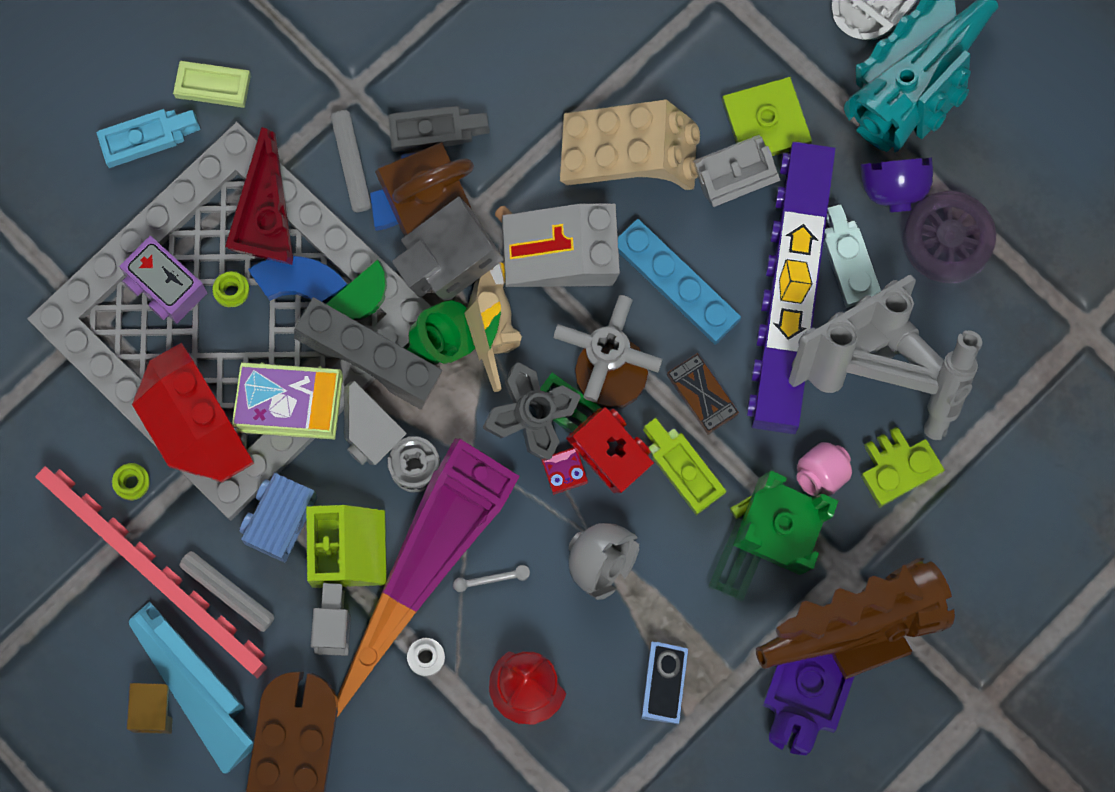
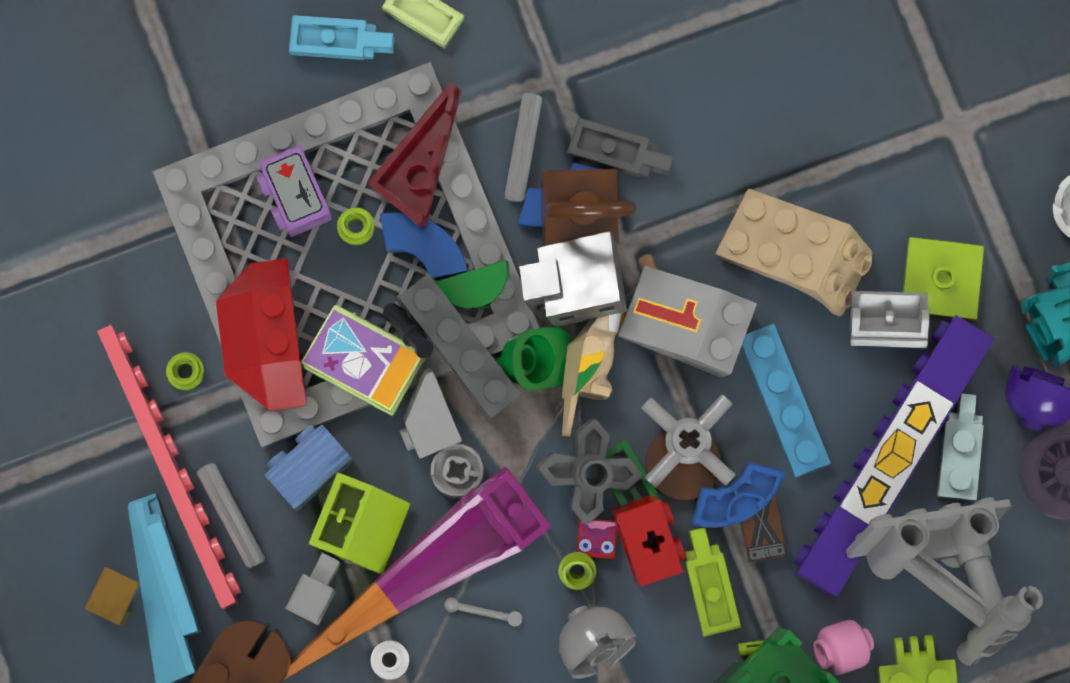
camera: 20 degrees right, 5 degrees up
(319, 357) = (410, 333): none -> black piece
(562, 516) = (574, 581): none -> lime plate
(675, 381) = (738, 500): none -> blue tile

